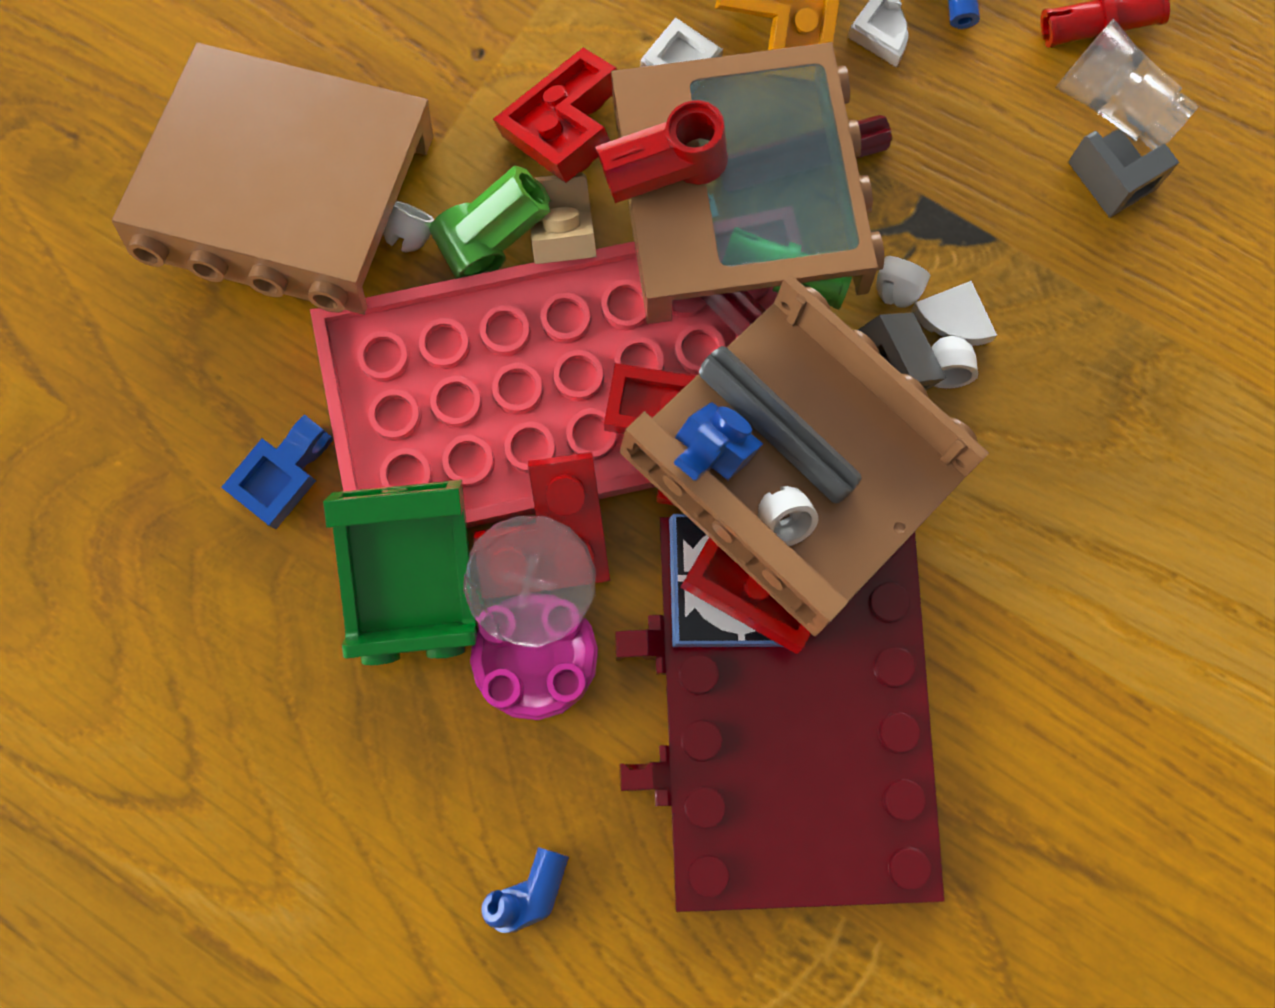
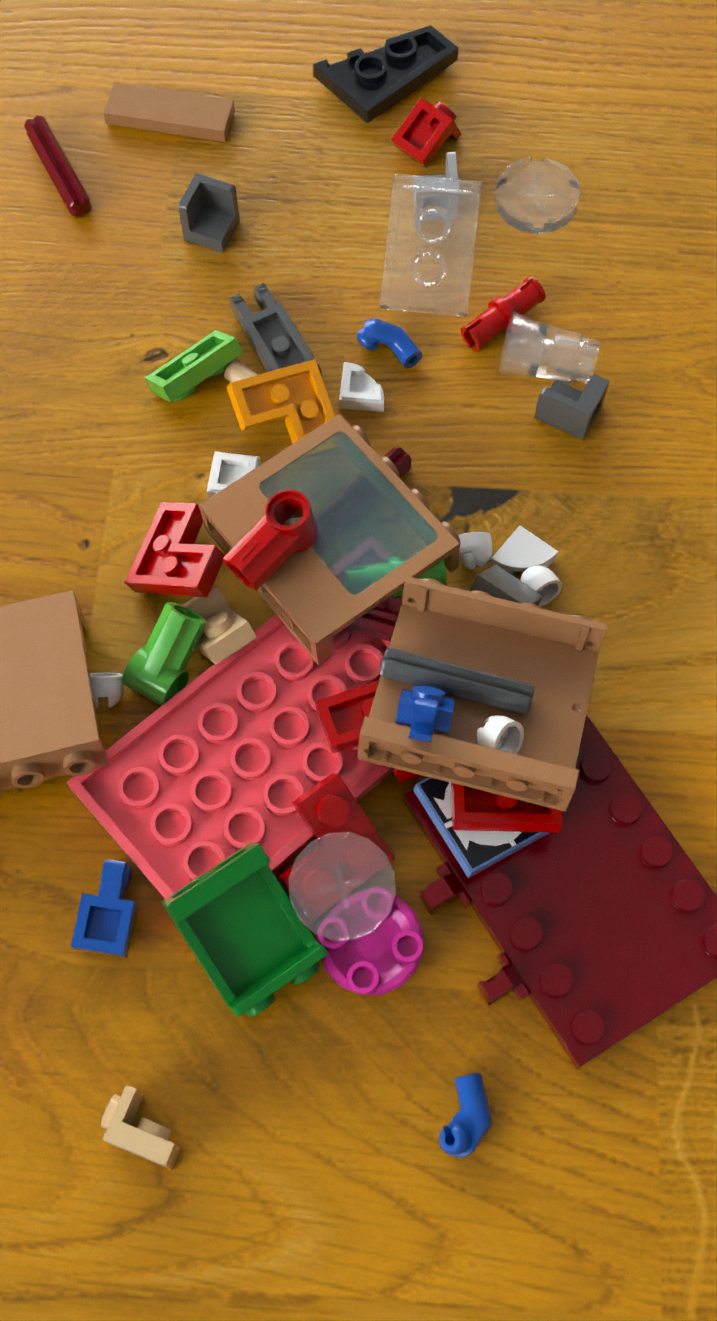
camera: 30 degrees left, 10 degrees down
(185, 728) = (146, 1140): none -> tan bracket

